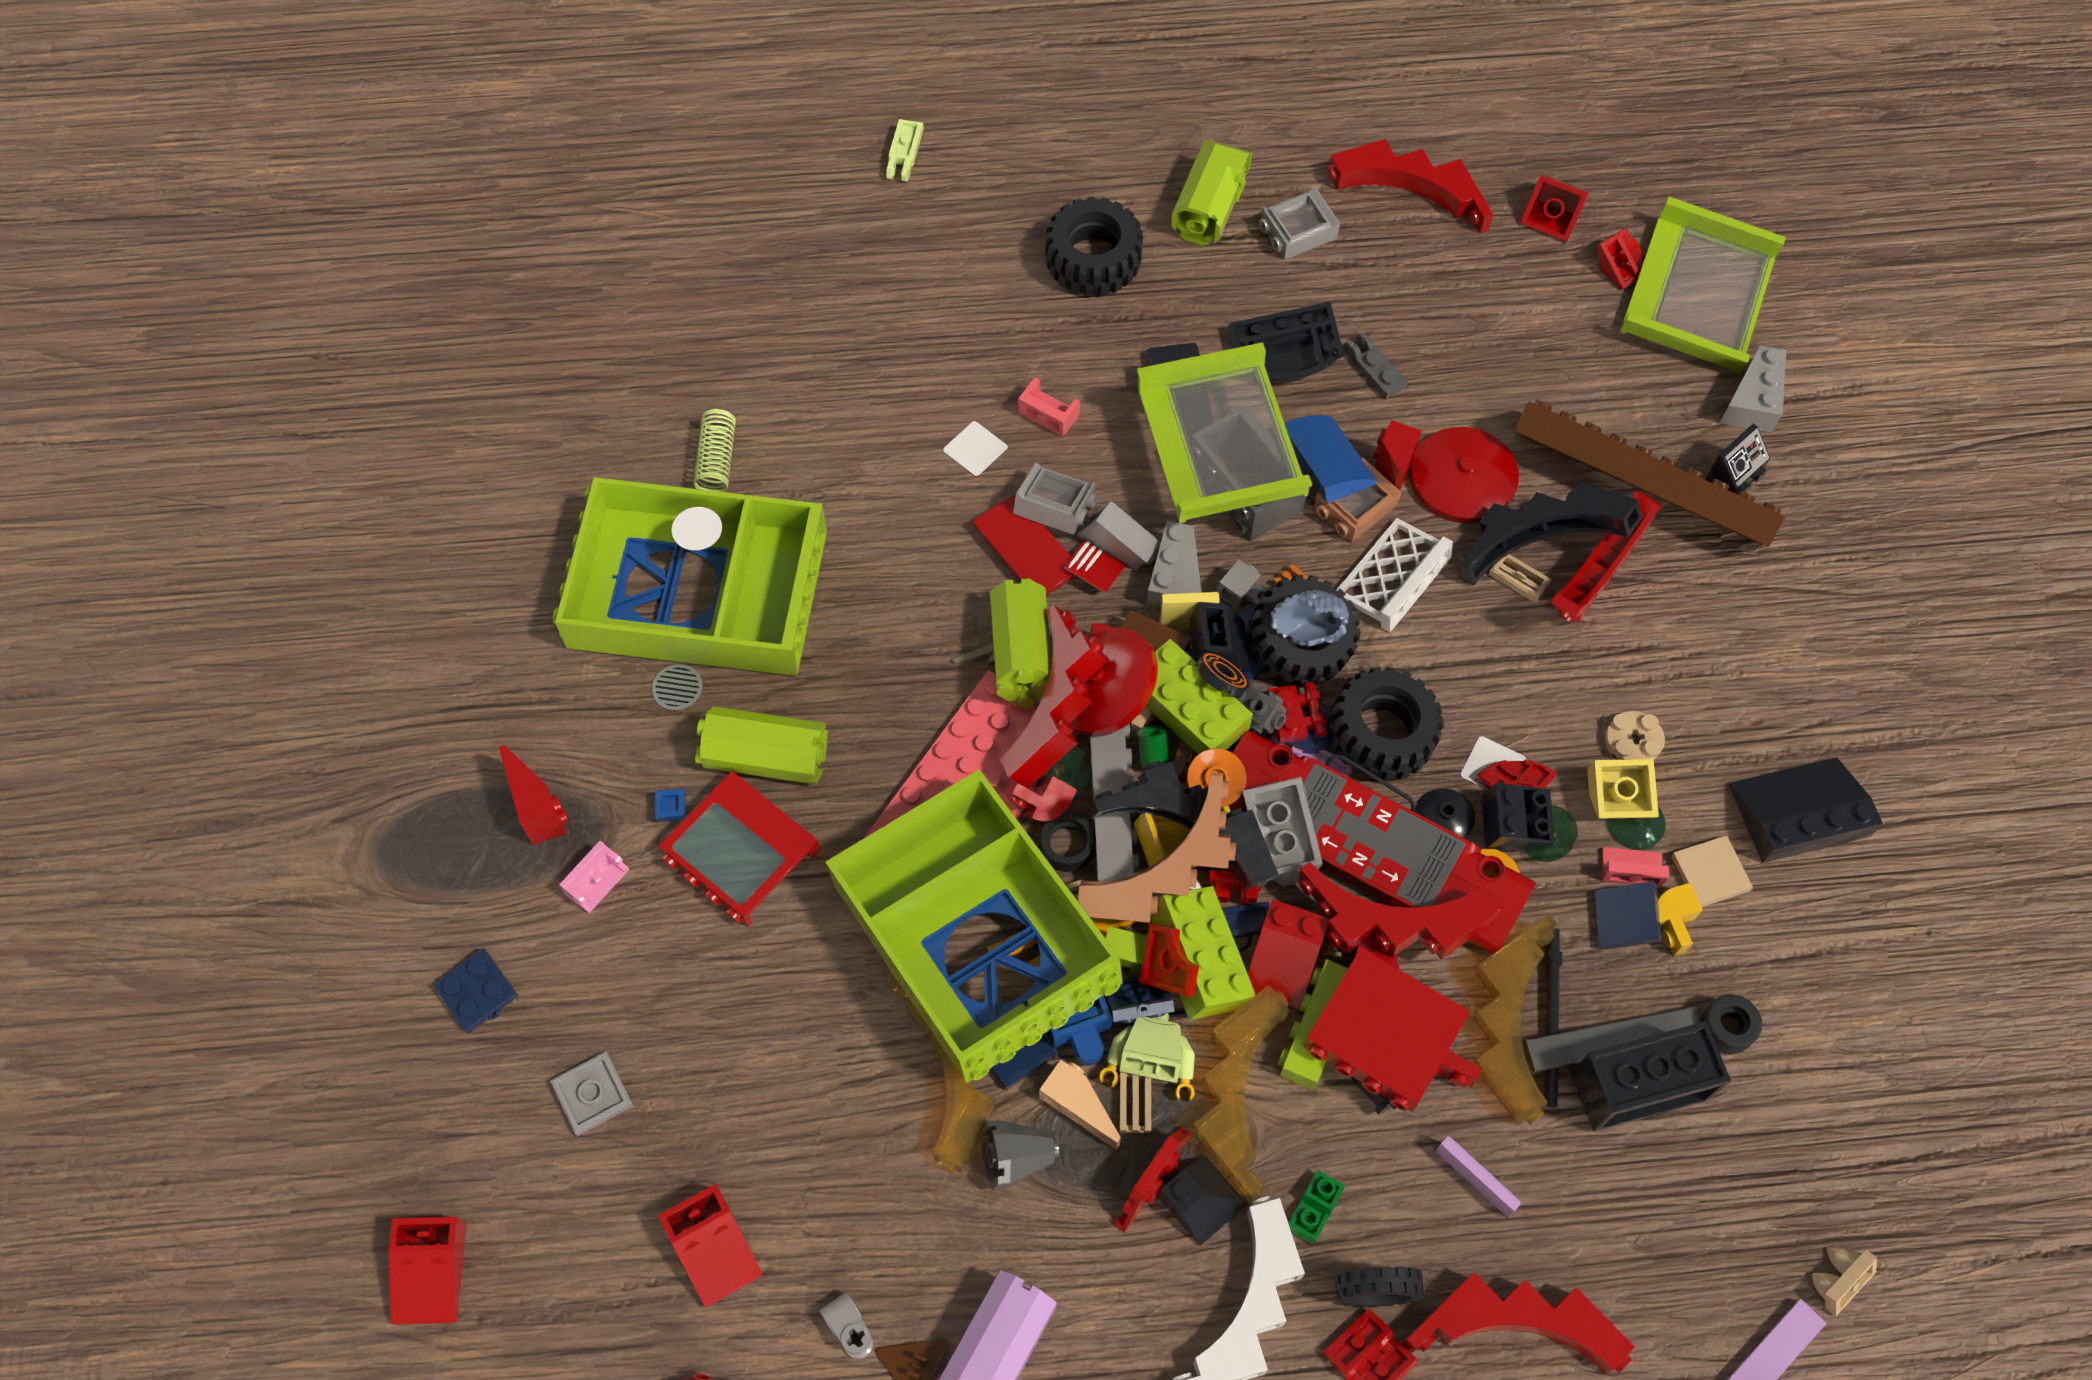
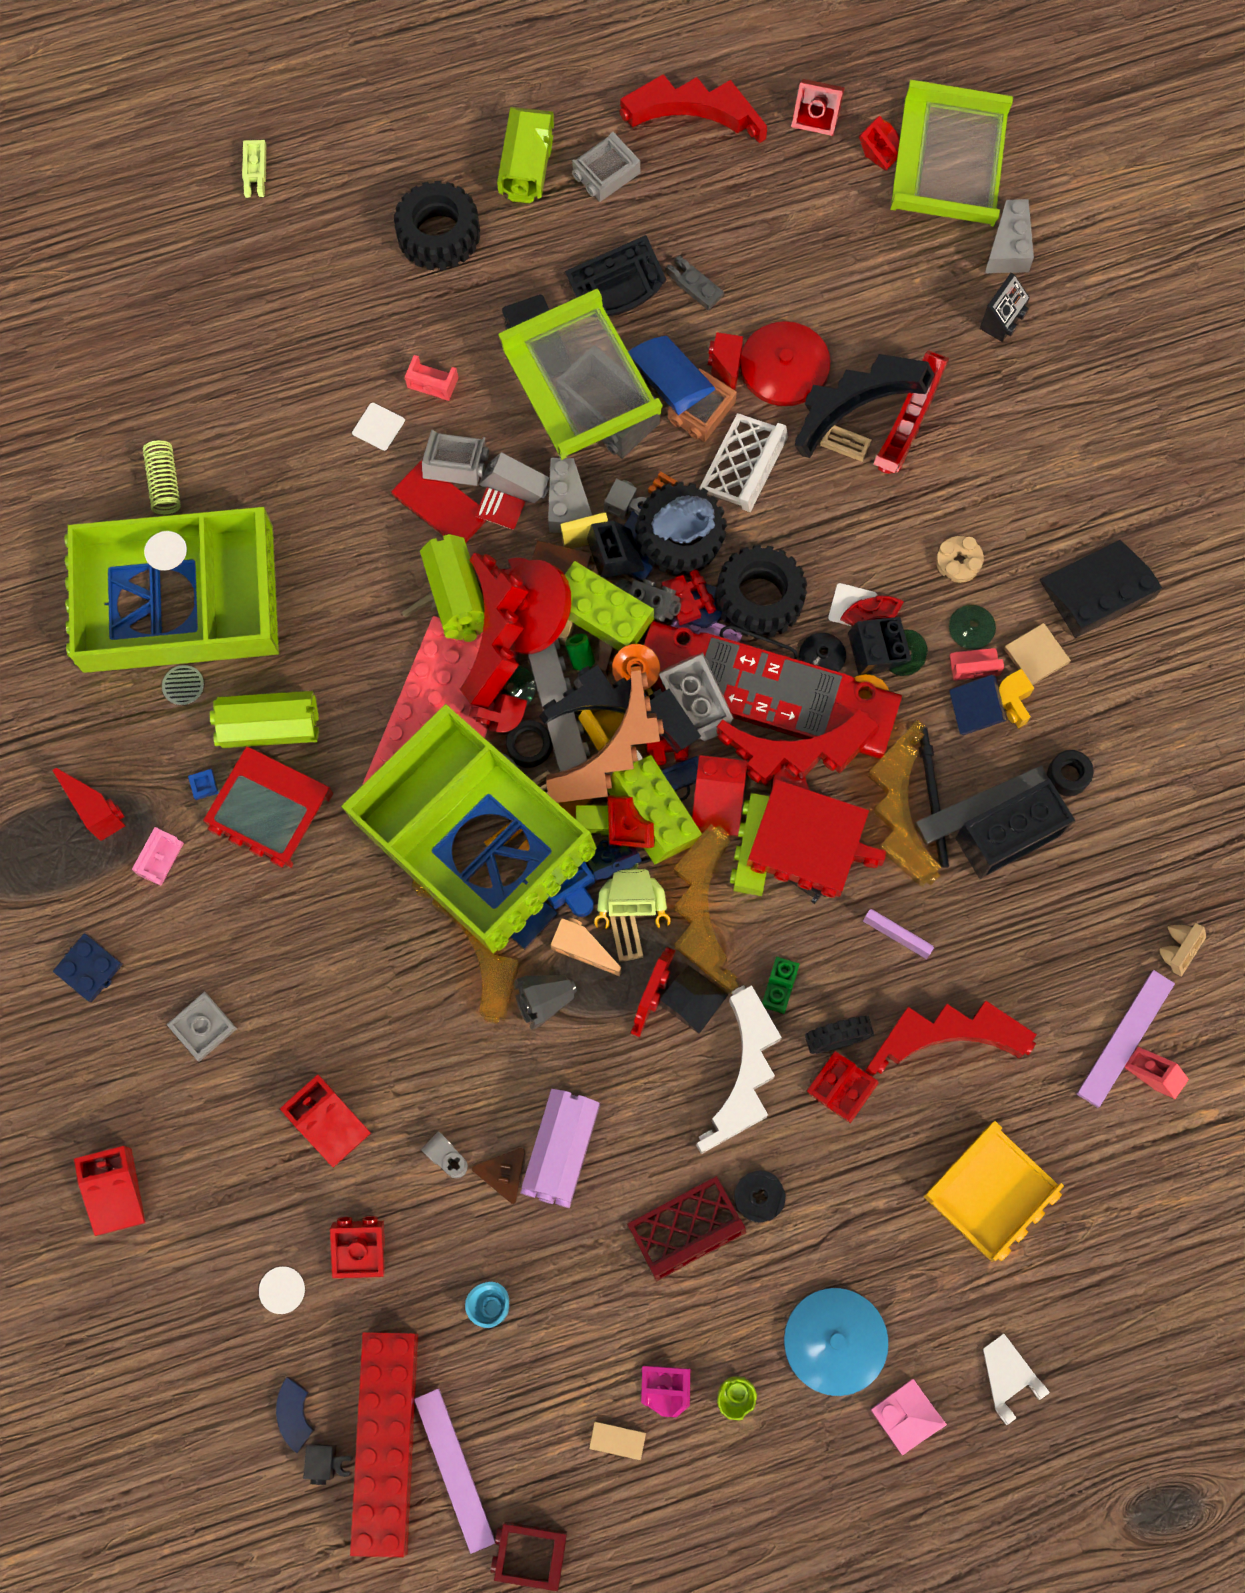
camera: 10 degrees left, 10 degrees up
(1222, 674) = (622, 581): black tile -> none
(1623, 788) = (957, 604): light yellow slope -> none
(1649, 474) = (933, 333): reddish brown brick -> none

